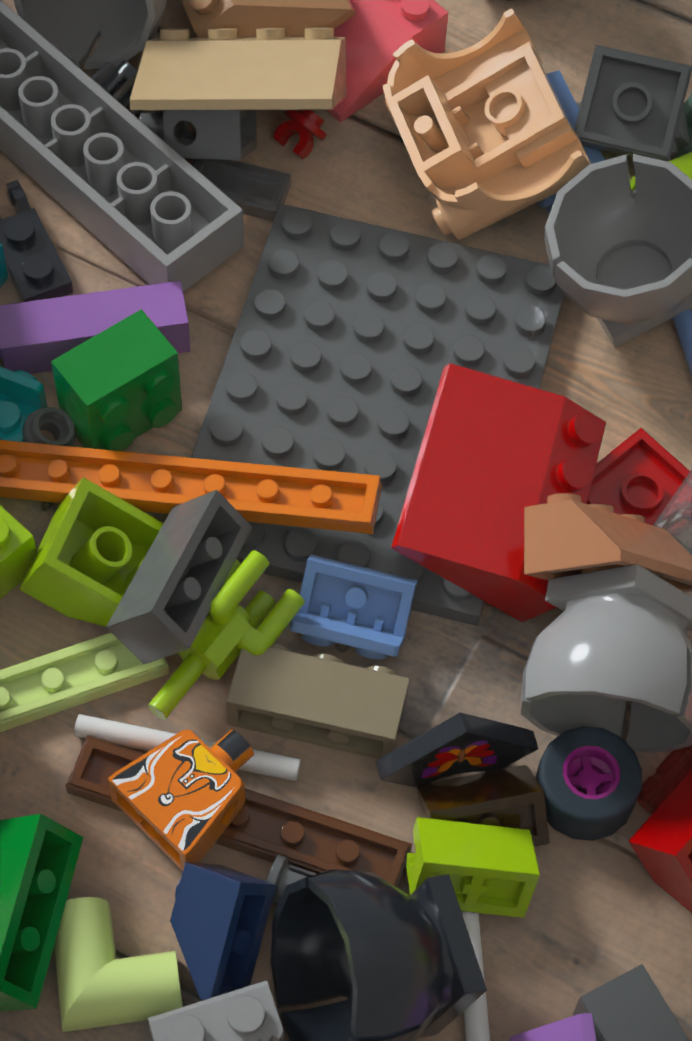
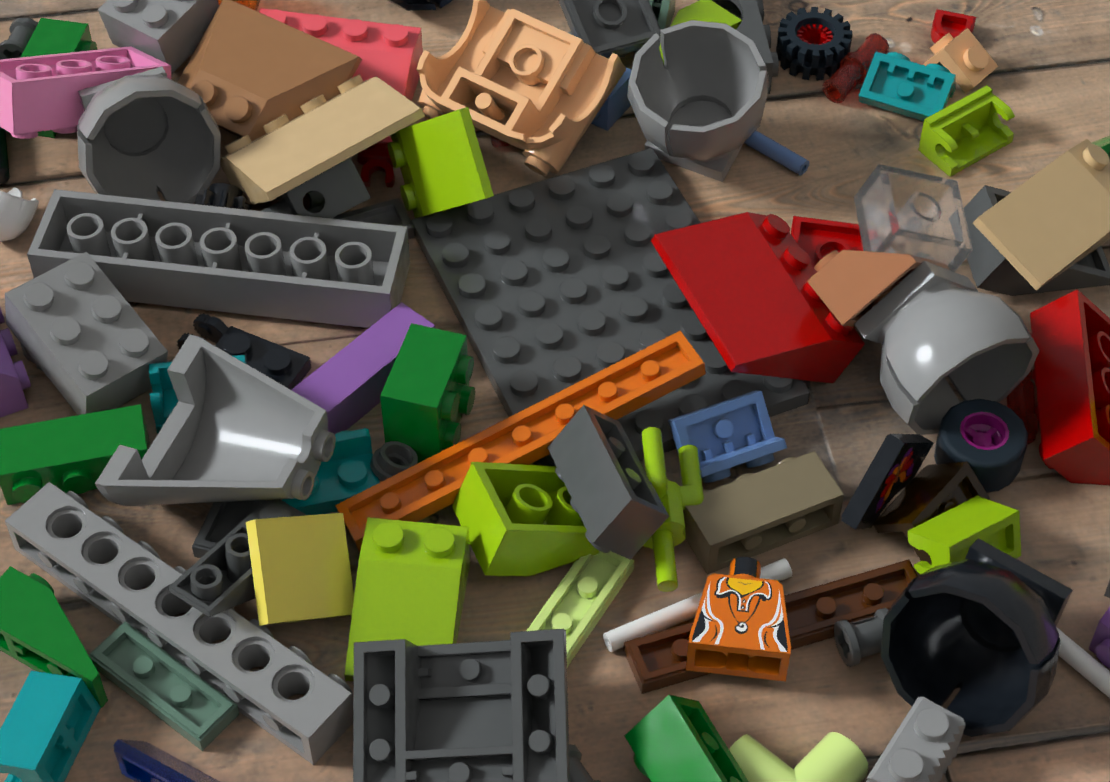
camera: 35 degrees left, 10 degrees down
(220, 925) = (844, 690): dark blue slope -> none
(326, 166) = (440, 164): none -> lime slope

